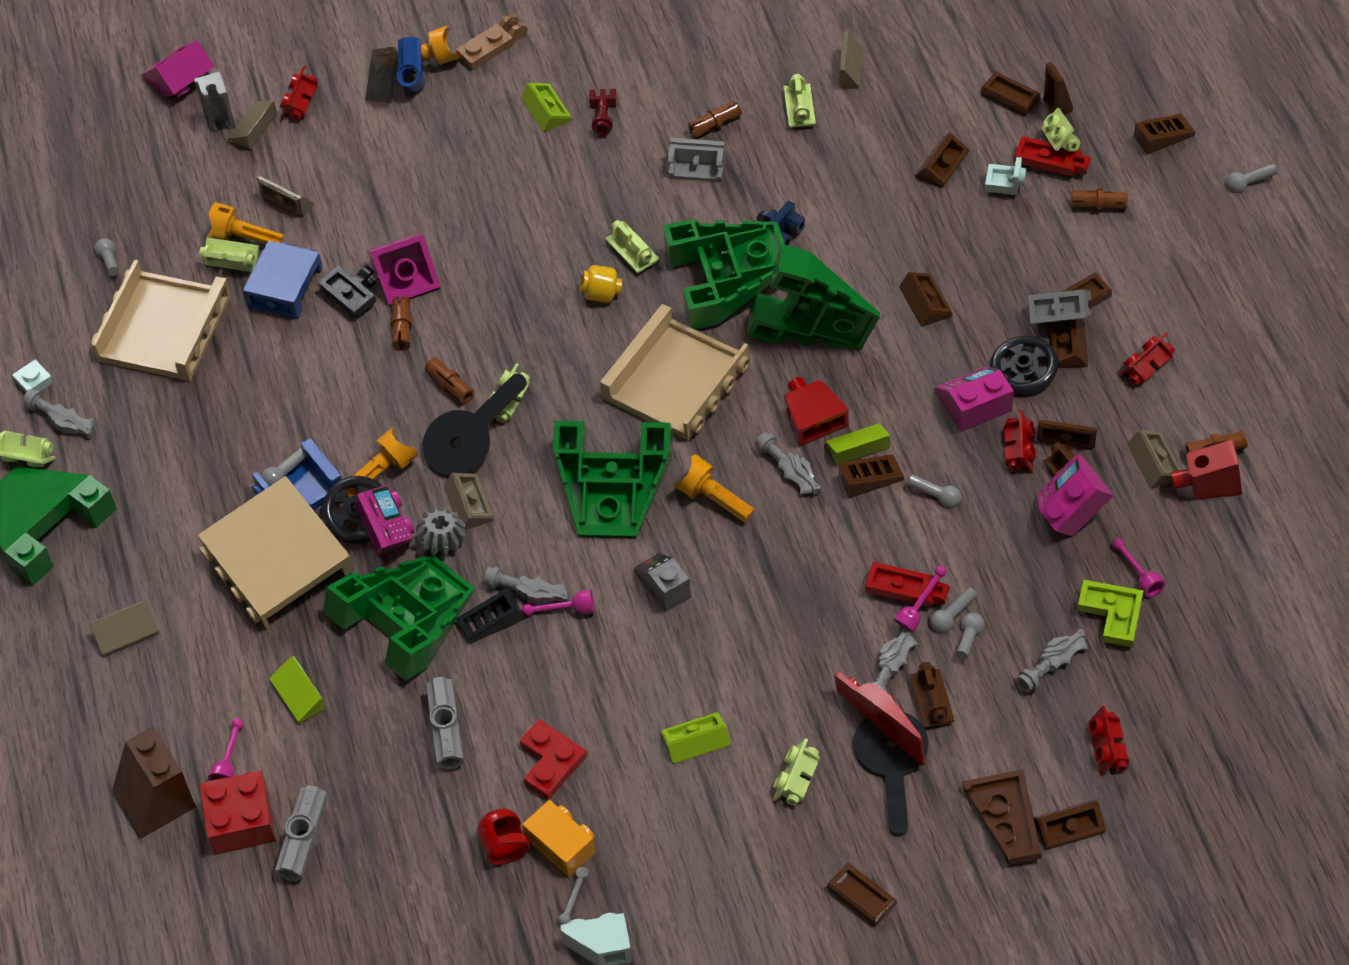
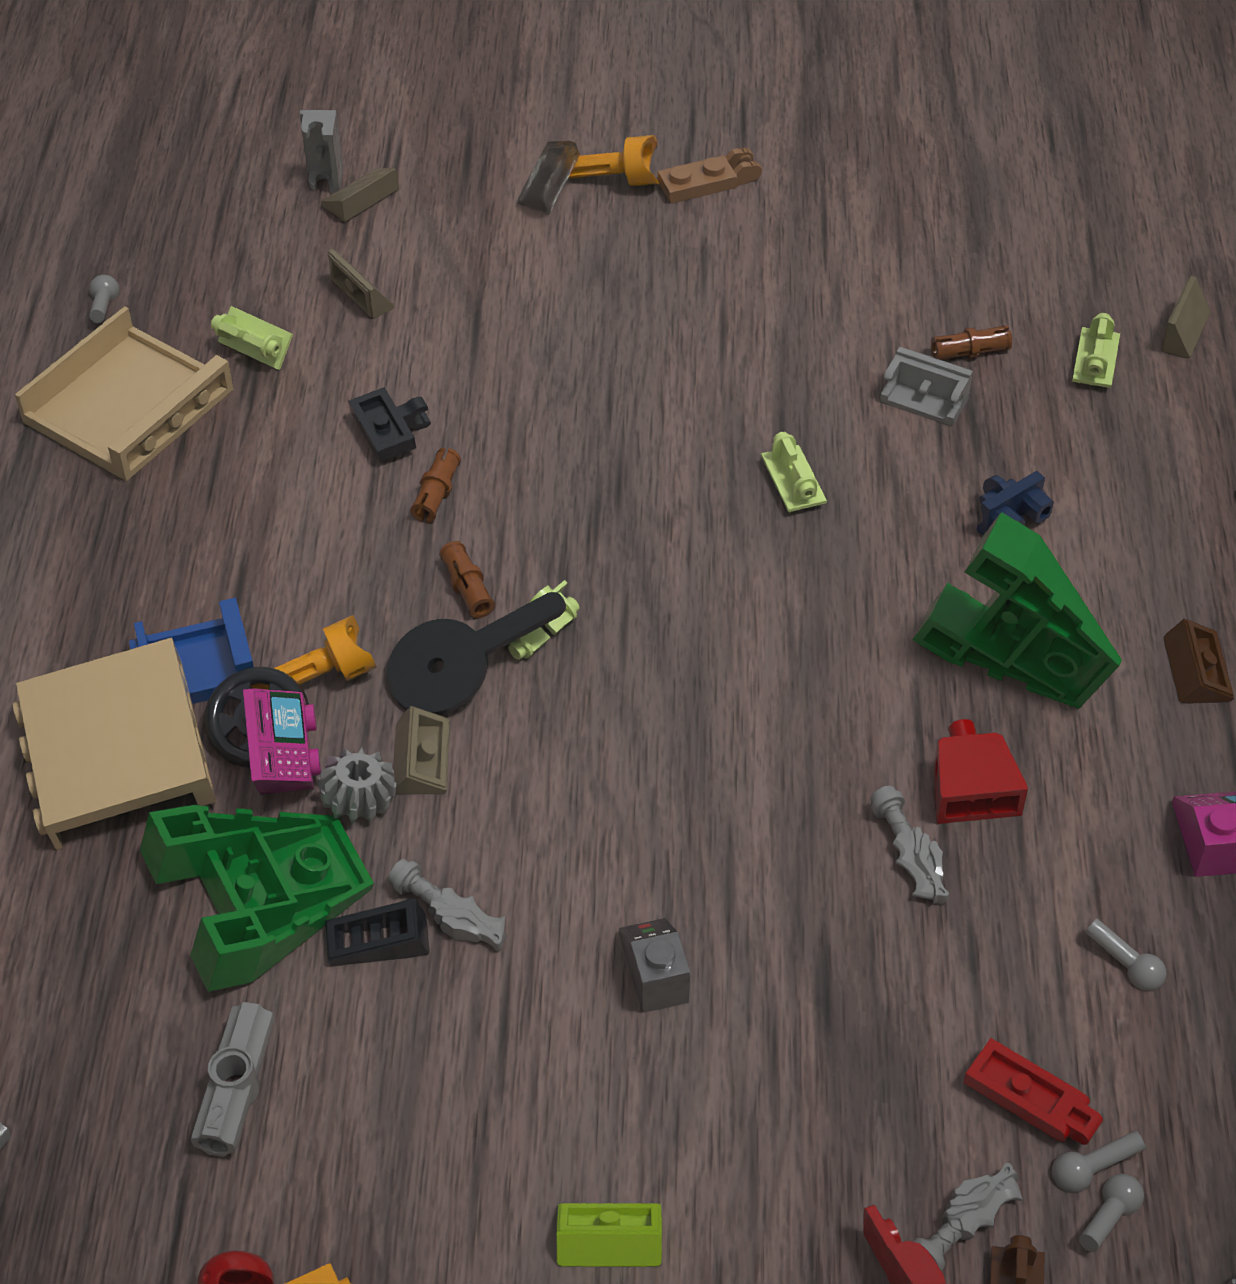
camera: 15 degrees right, 5 degrees down
(179, 69) = (282, 104): dark pink slope -> none
(226, 224) = (265, 298): light orange piece -> none
(274, 474) = (163, 630): light grey bar -> none
(281, 279) = (302, 383): panel -> none
(297, 690) = (49, 955): lime slope -> none
(301, 86) = (423, 180): red hinge -> none
(404, 267) = (470, 414): dark pink slope -> none
(410, 63) = (589, 170): blue piece -> none
(545, 106) = (747, 268): lime slope -> none
(557, 757) = (382, 1196): red plate -> none
(582, 603) = (520, 956): dark pink hinge -> none
(600, 284) = (729, 510): yellow head -> none
(602, 123) = (813, 307): dark red hinge -> none
(611, 490) = (631, 802): green wedge -> none
(673, 374) = (785, 664): tan panel -> none
(700, 480) = (765, 827): light orange piece -> none
(733, 262) = (924, 531): green wedge -> none
(858, 443) = (1029, 846): lime slope -> none
(865, 484) = (1017, 911): reddish brown slope -> none
(909, 616) = (1022, 1147): dark pink hinge -> none

